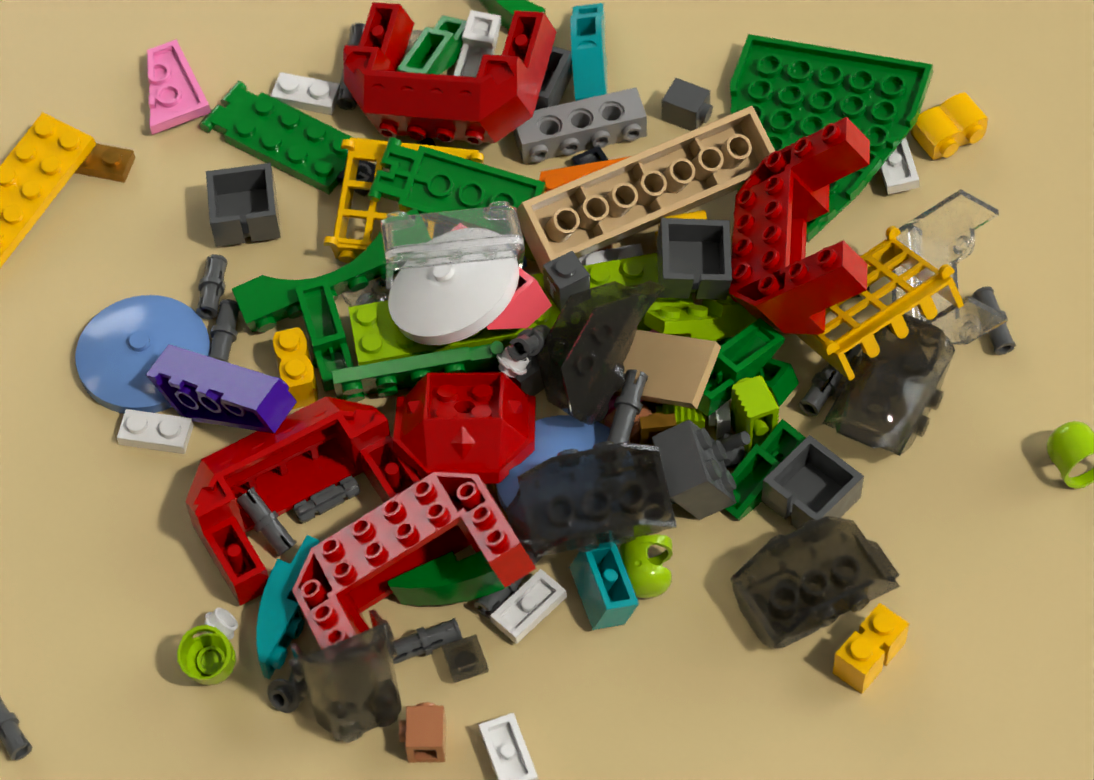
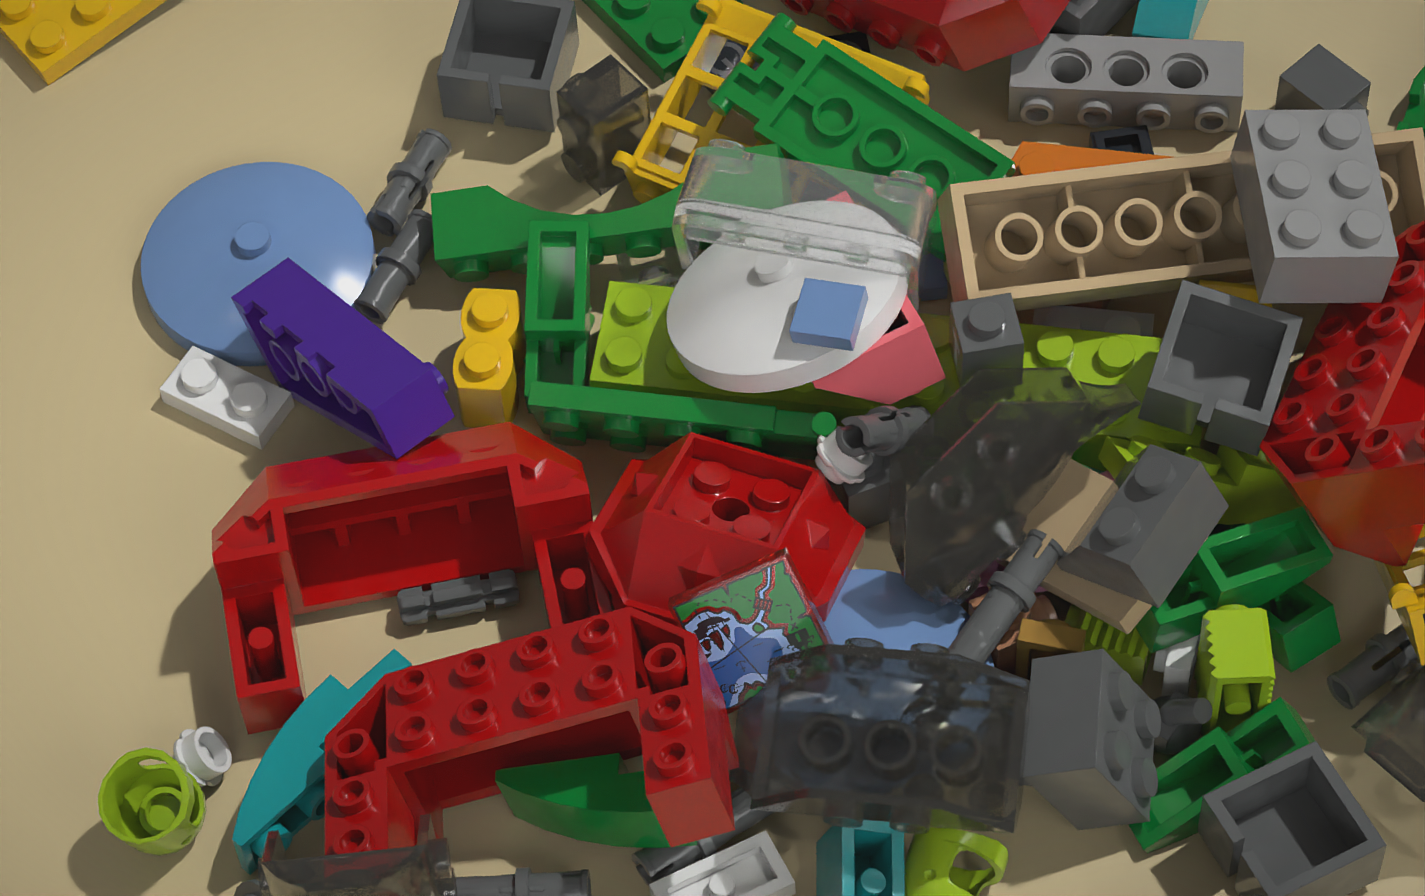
camera: 20 degrees right, 0 degrees up
(266, 521) = (339, 604): dark grey pin -> none
(308, 222) = (597, 117): none -> clear smoke brick
(485, 287) = (828, 314): none -> medium blue tile
(500, 459) = (748, 620): none -> tile
(688, 349) = (1147, 526): none -> dark grey slope
(715, 161) = (1313, 206): none -> light grey brick

